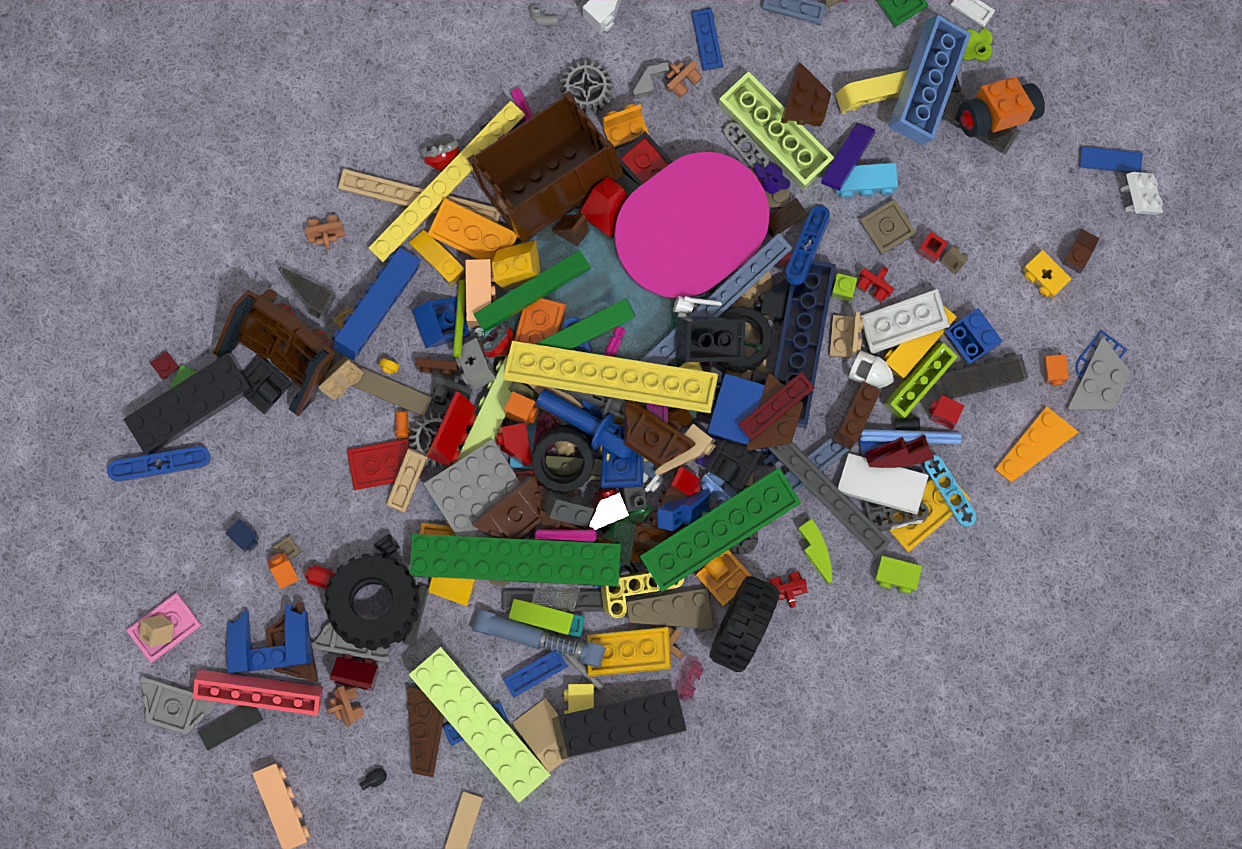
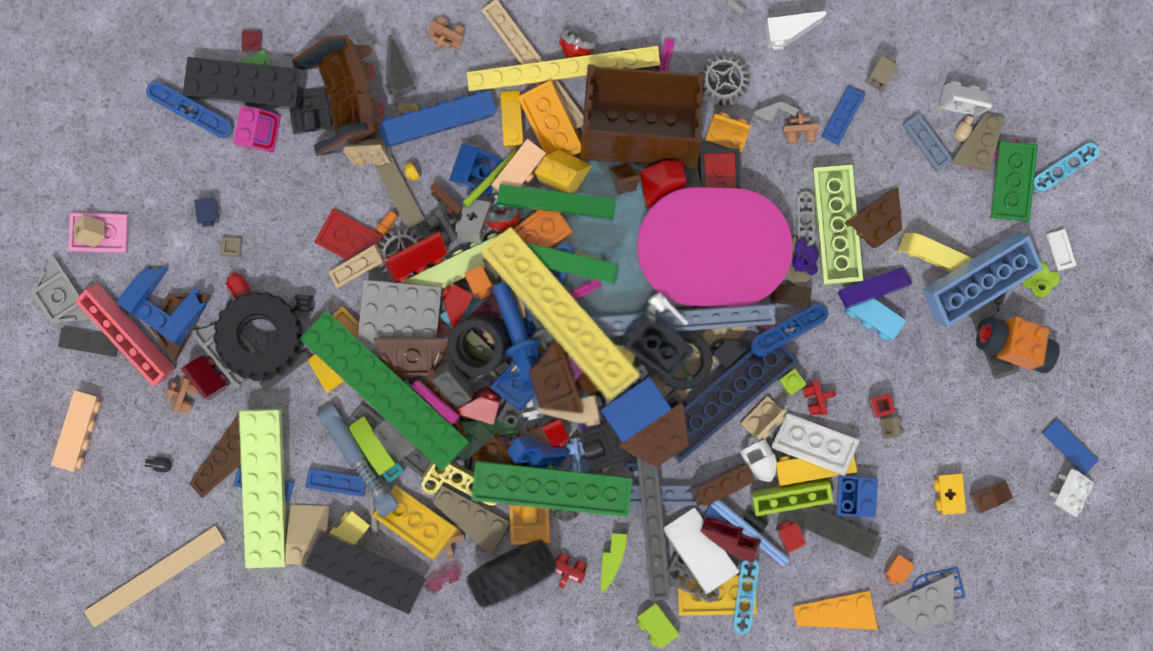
camera: 45 degrees right, 5 degrees up
(230, 434) = (257, 129): none -> dark pink slope
(282, 570) = (214, 260): orange brick -> none
(776, 406) = (666, 432): dark red tile -> none
(888, 227) = (862, 363): dark tan plate -> none

